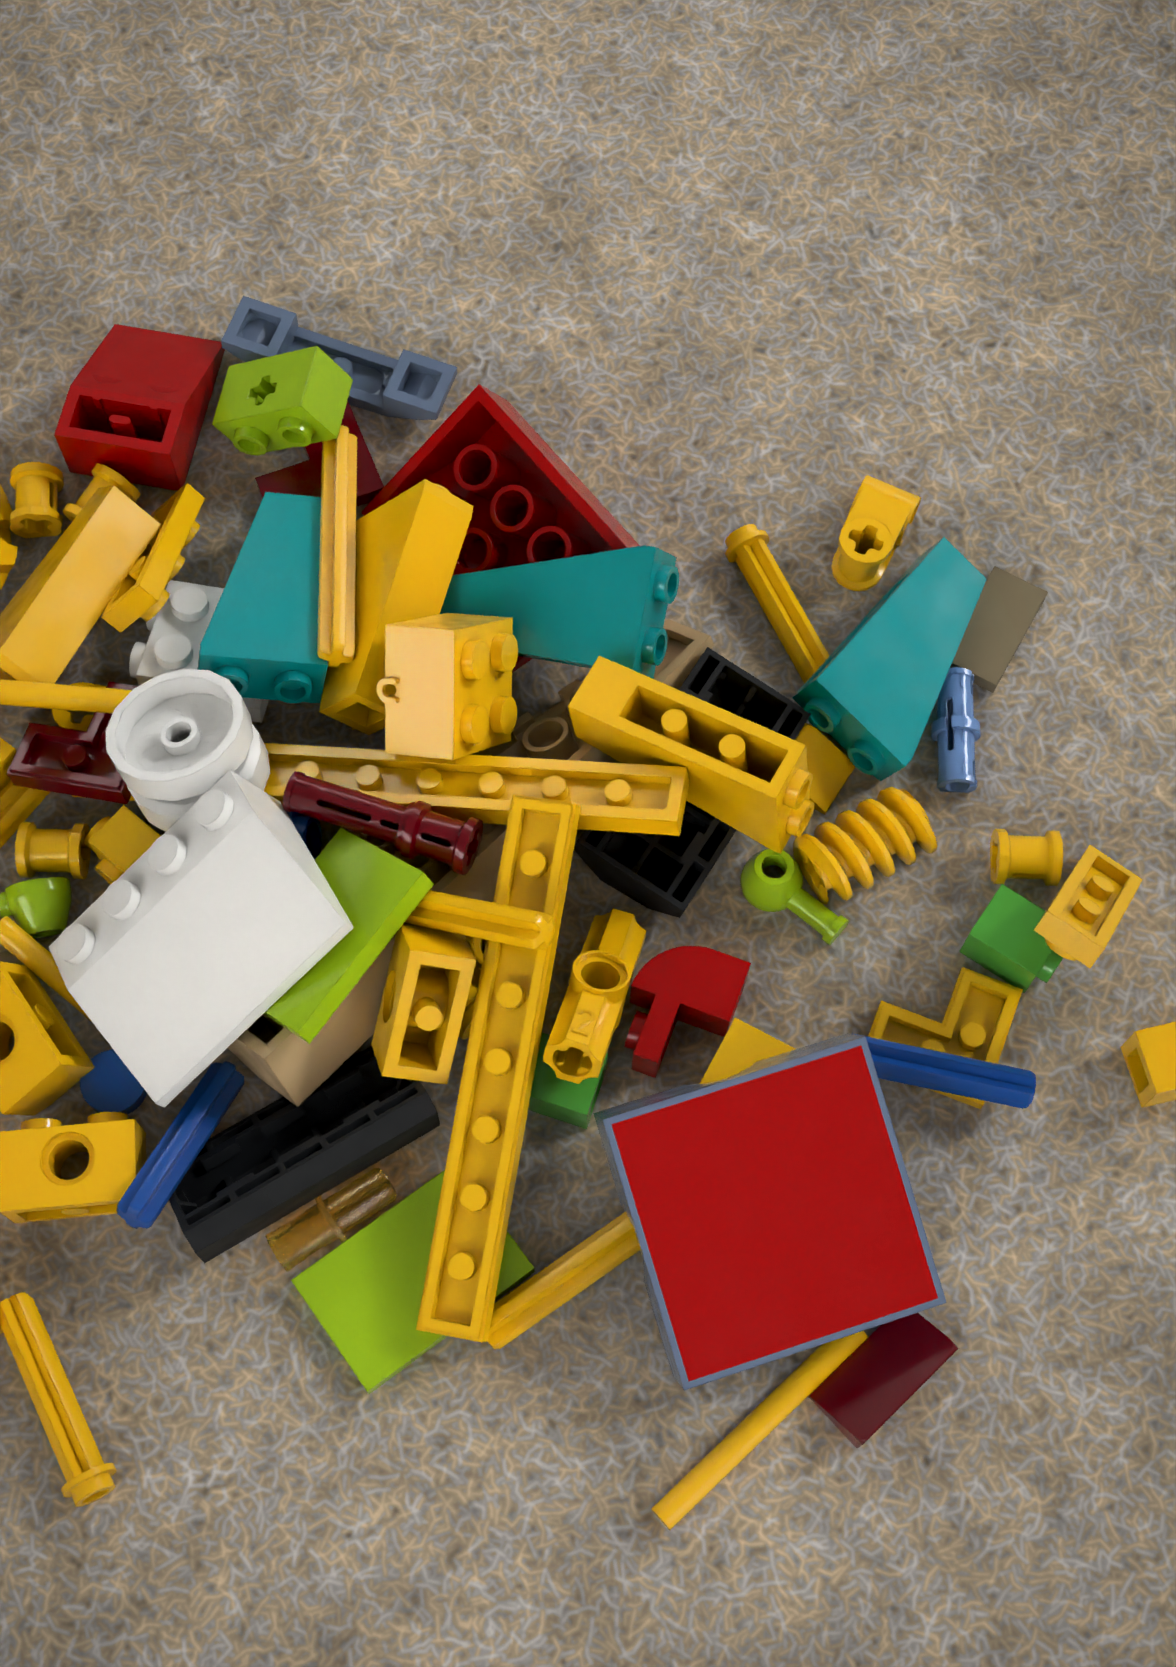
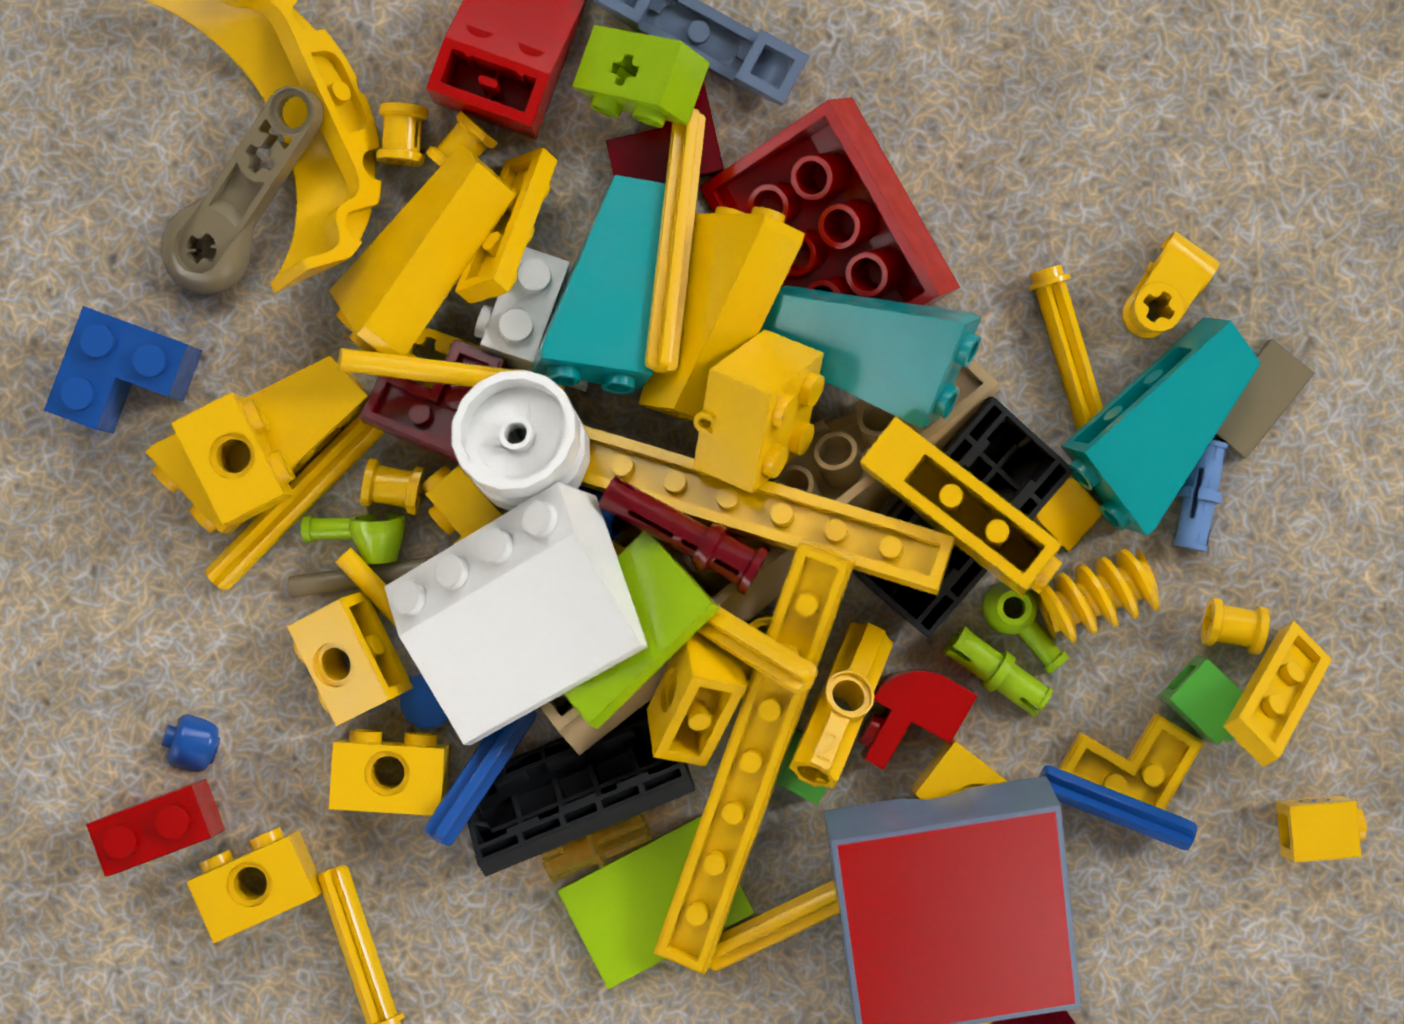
camera: 10 degrees right, 20 degrees up
(771, 947) = (998, 671): none -> lime pin

